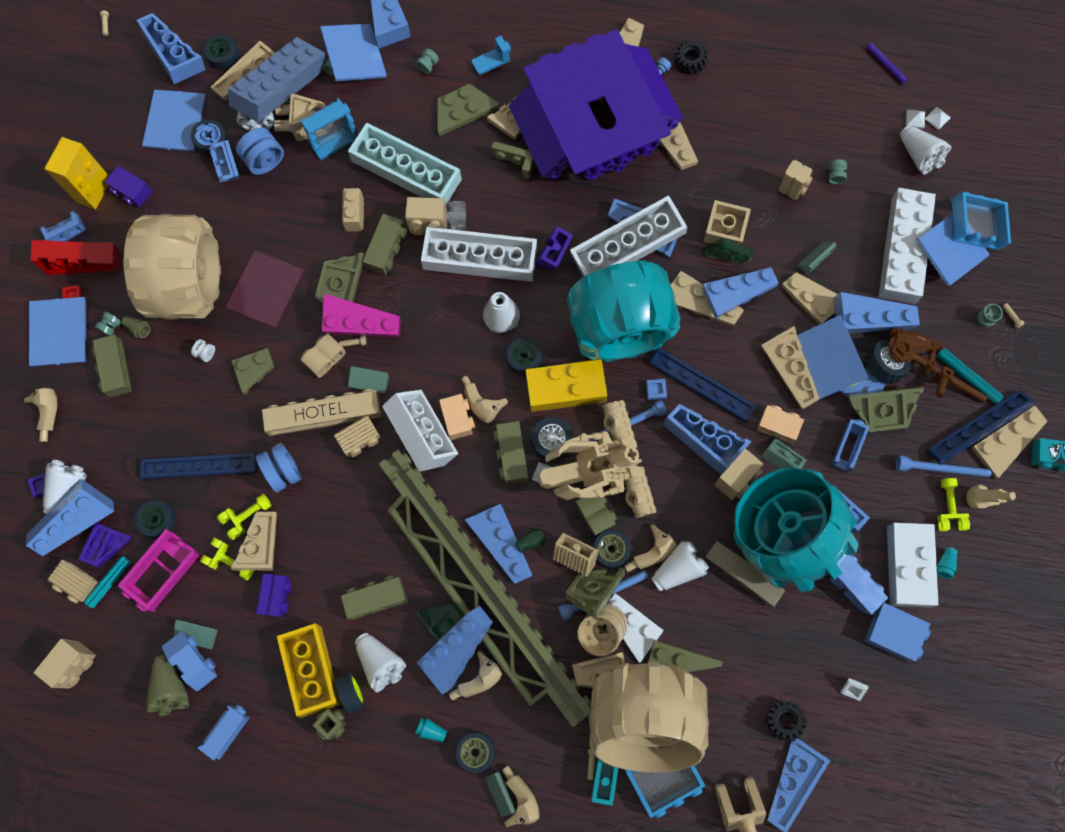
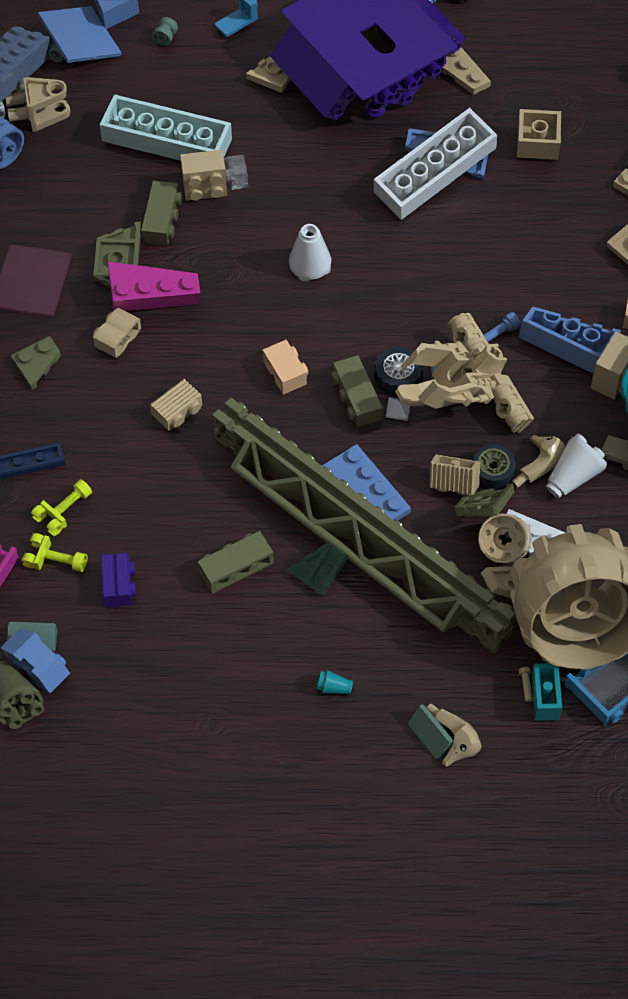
camera: 15 degrees left, 15 degrees down
(224, 732) = (92, 729): medium blue window -> none
(259, 544) = (88, 530): tan wing -> none
(278, 468) = (94, 445): medium blue wheel -> none
(308, 670) = (178, 645): yellow brick -> none
(321, 413) = (127, 388): tan brick -> none
(323, 721) = (216, 695): olive brick -> none
(330, 129) = (74, 107): dark azure window -> none
(349, 693) = (231, 658): black wheel -> none
(353, 209) = (116, 184): tan brick -> none
(362, 340) = (150, 314): tan piece -> none
(368, 379) = (174, 348): sand green slope -> none
(378, 662) = (258, 622): white cone -> none
(420, 430) = (248, 381): white brick -> none
(451, 653) = (341, 590): medium blue wedge -> none
(463, 107) = (216, 70): olive wing -> none
(464, 752) = (384, 686): wheel -> none
(479, 254) = (272, 203): white brick -> none
(483, 408) = (313, 353): tan animal -> none
(488, 676) = (386, 616): tan animal -> none
(516, 155) = (287, 105): olive bracket -> none
(522, 347) = (337, 295): wheel -> none
(531, 540) = (402, 471): clear green cone -> none
(551, 255) = (354, 185): dark purple brick -> none
(566, 385) = (401, 315): yellow brick -> none
(568, 610) = (458, 537): medium blue piece -> none
(596, 514) = (466, 433): olive brick -> none
(623, 311) = (449, 219): teal wheel -> none
(656, 389) = (501, 305): medium blue tile -> none
(691, 297) = (527, 211): tan wing -> none
(702, 385) = (552, 293): dark blue tile -> none
(728, 250) = (546, 158): clear green wing -> none
(731, 292) = (564, 194): medium blue wing -> none
(796, 180) = (601, 79): tan brick -> none

